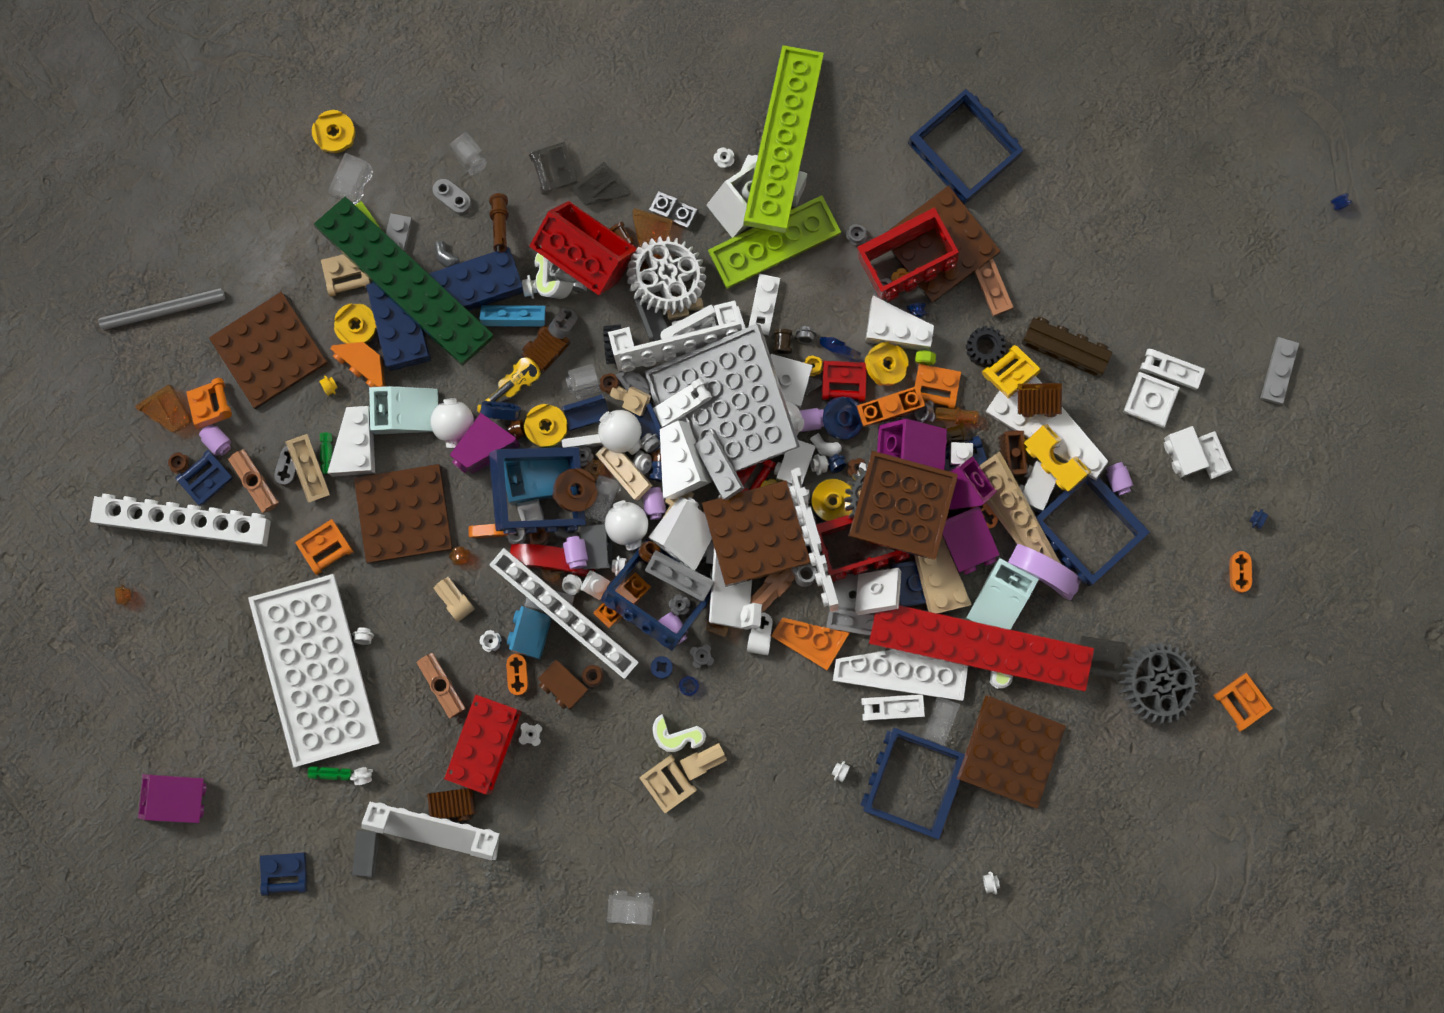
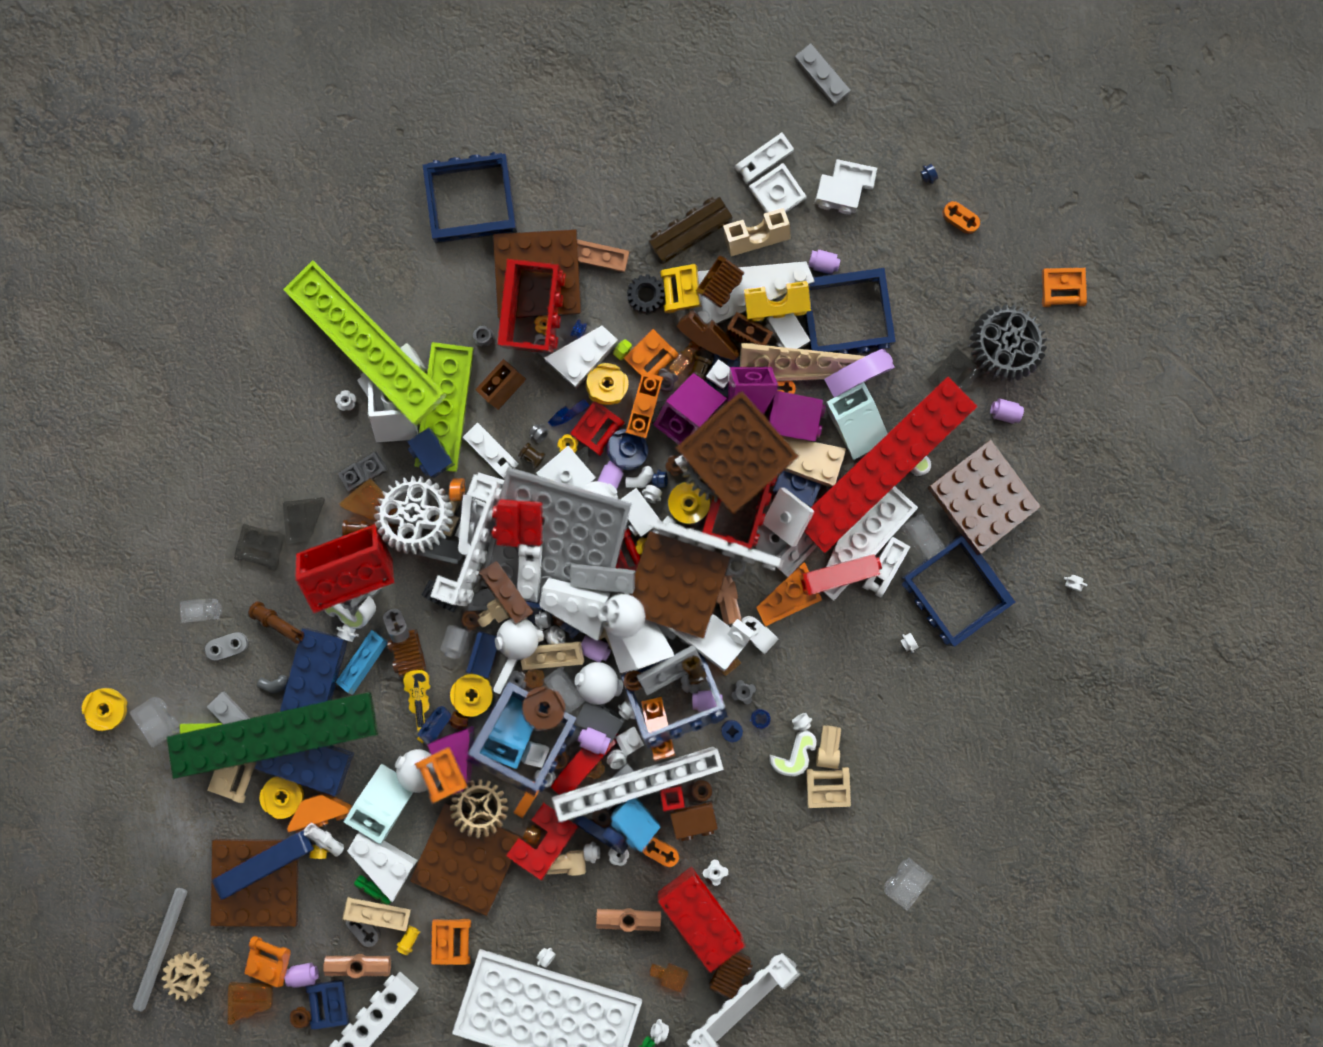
camera: 60 degrees left, 5 degrees up
(148, 353) = (183, 967): none -> tan gear
(289, 345) = (262, 865): none -> dark blue beam
(301, 510) = (408, 940): none -> yellow pin
(342, 382) = (323, 839): none -> white pin
(416, 757) = (672, 976): none -> clear orange plate
(455, 485) = (486, 814): none -> tan gear
(469, 443) = (447, 772): none -> orange plate
(474, 577) = (542, 859): none -> red plate
(478, 616) = (591, 852): none -> white plate
(501, 615) = (608, 836): none -> dark blue beam
(509, 600) = (605, 823): none -> reddish brown plate
(571, 652) = (672, 797): none -> red brick
(652, 394) = (505, 593): none -> reddish brown plate
(694, 593) = (692, 666): none -> dark brown bush
(699, 502) = (622, 615): none -> white brick
(709, 723) = (802, 722): none -> white plate
(712, 296) = (457, 489): none -> orange beam
(718, 364) = (518, 523): none -> red plate
(727, 254) = (430, 453): none -> dark blue brick
(825, 275) = (500, 384): none -> reddish brown brick
(859, 668) = (840, 574): none -> slope
(986, 421) = (708, 335): none -> reddish brown slope
(1091, 398) = (771, 230): none -> tan arch
(1100, 723) = (1007, 411): none -> lavender brick

